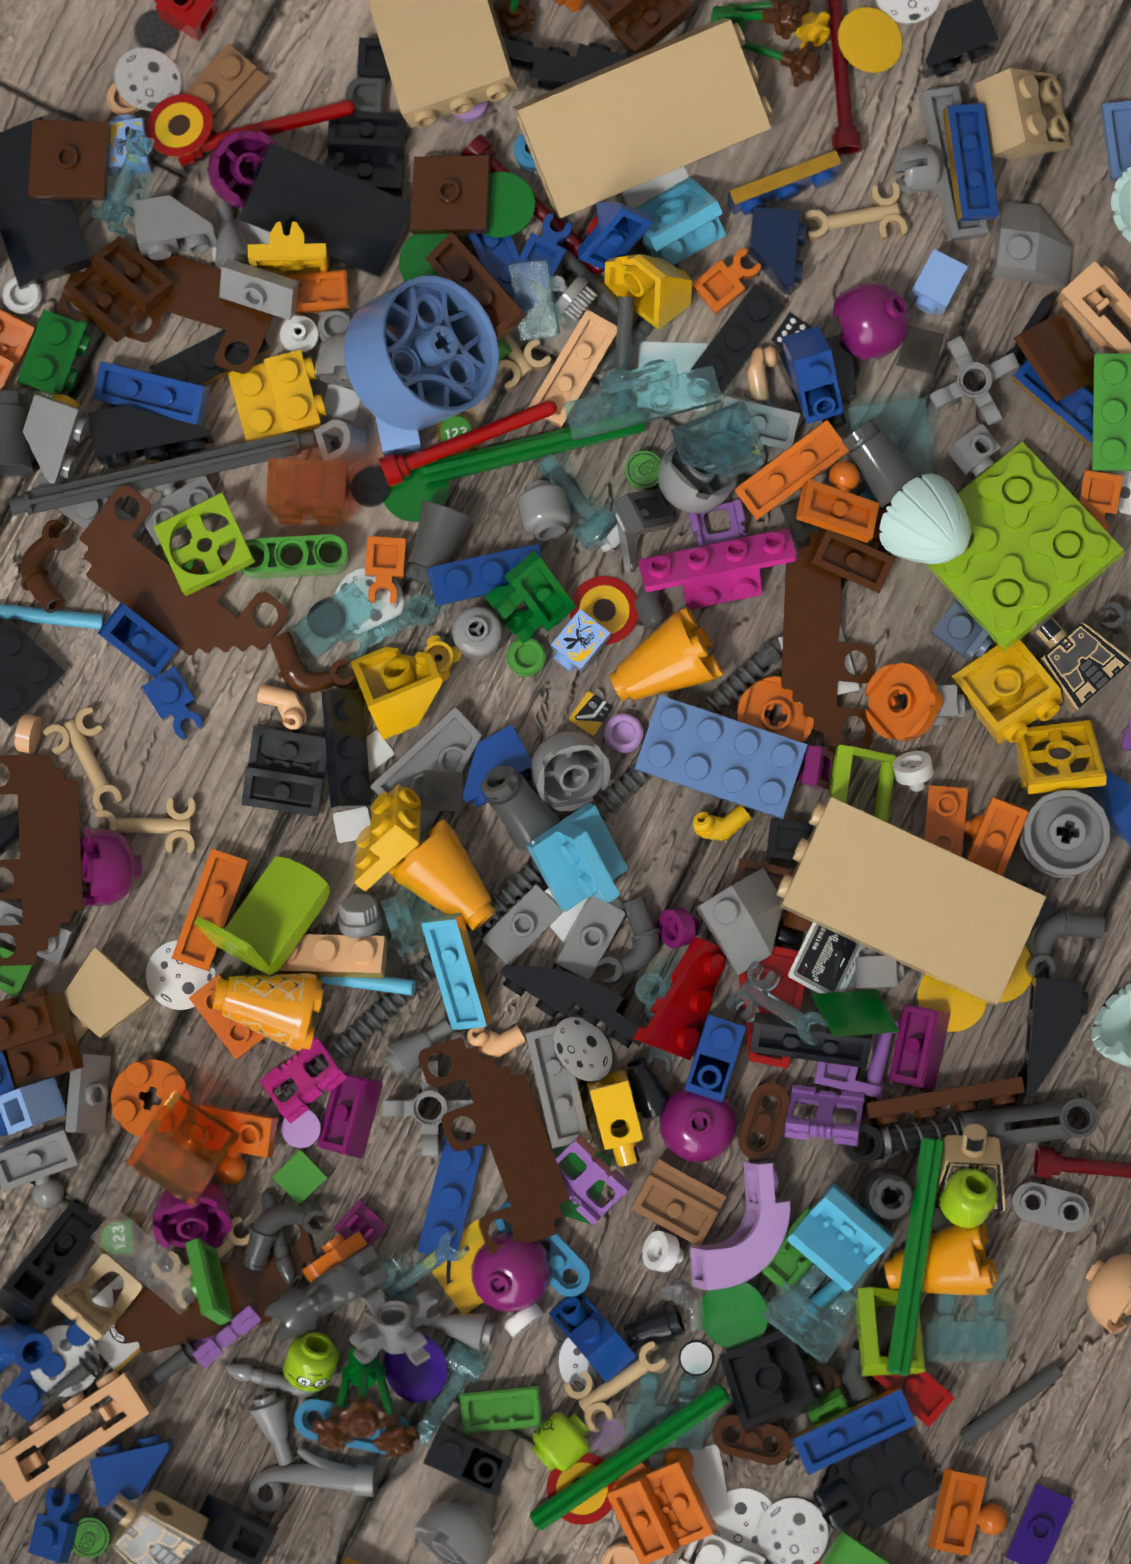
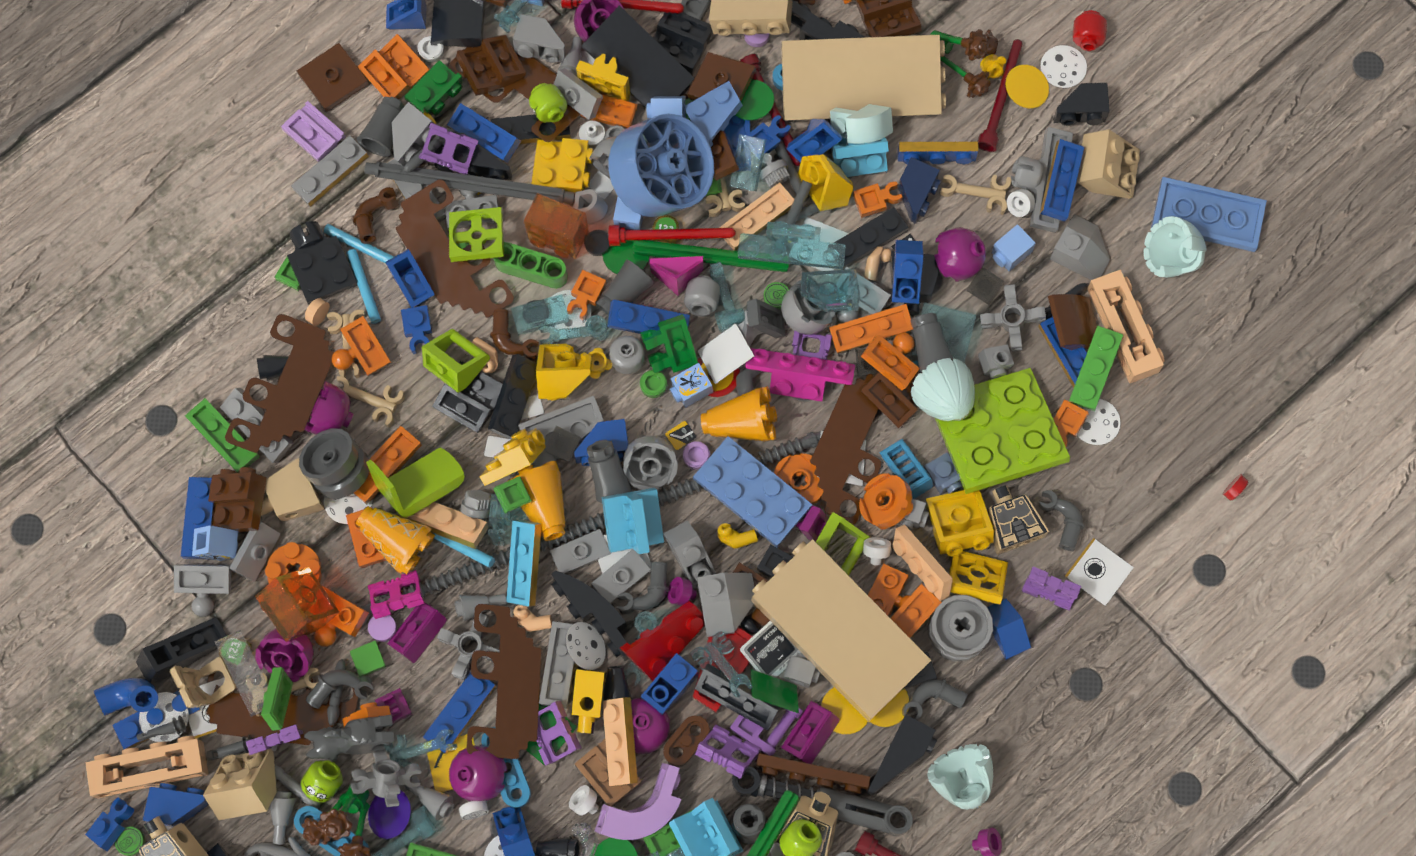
camera: 25 degrees right, 10 degrees down
(75, 672) = (363, 286): none -> medium azure bar
(88, 450) = (415, 161): none -> dark grey piece
(114, 758) = (363, 346): none -> orange plate
(117, 425) = (446, 157): none -> medium lavender piece
(147, 937) = (334, 463): none -> dark grey wheel
(210, 1409) = (242, 785): none -> tan slope
(225, 318) = (547, 103): none -> lime head
(239, 745) = (448, 369): none -> lime tile
(391, 264) = (666, 104): none -> light blue brick
(409, 891) = (512, 494): none -> bright green tile
(459, 244) = (714, 110): none -> medium blue wing
(497, 490) = (676, 271): none -> dark pink slope
(609, 579) = (725, 353): none -> white sticker
(670, 871) = (689, 552): none -> light grey slope
(675, 189) = (864, 125): none -> light aqua brick
(681, 1159) = (620, 741): none -> light nougat plate
(884, 621) = (920, 480): none -> dark azure slope
(924, 213) = (1020, 202): none -> white tile
(982, 768) = (922, 563): none -> light nougat plate

